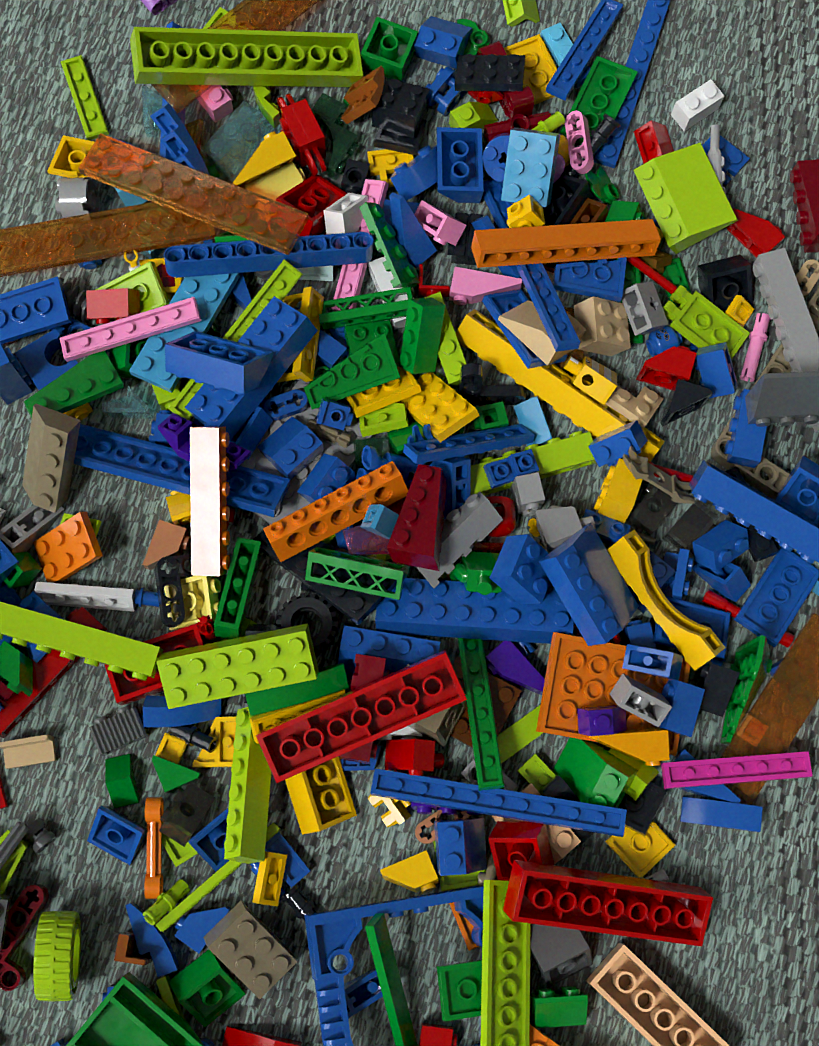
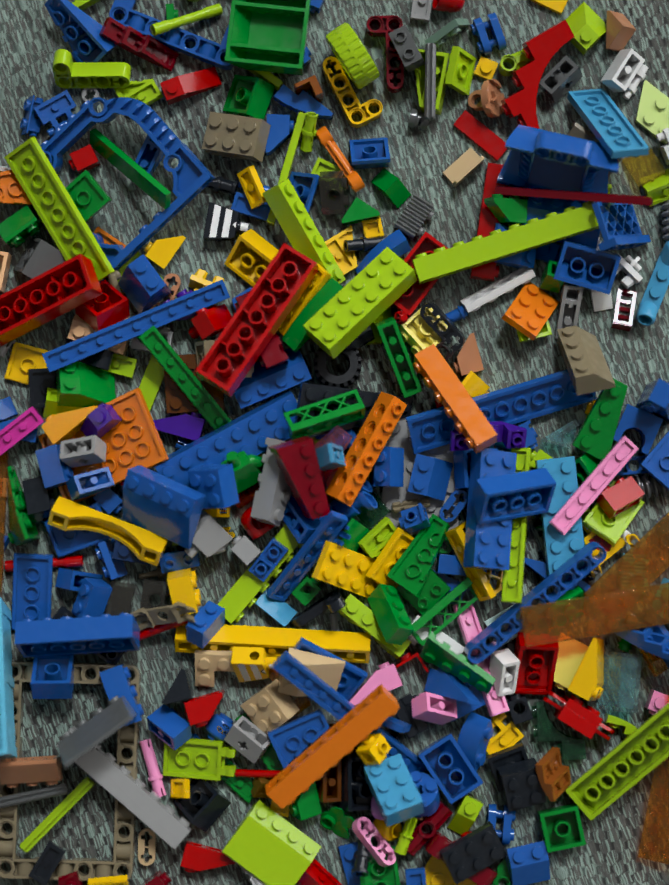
camera: 150 degrees right, 10 degrees up
(92, 921) = (347, 91): none -> yellow beam
(328, 860) = (223, 224): none -> torso

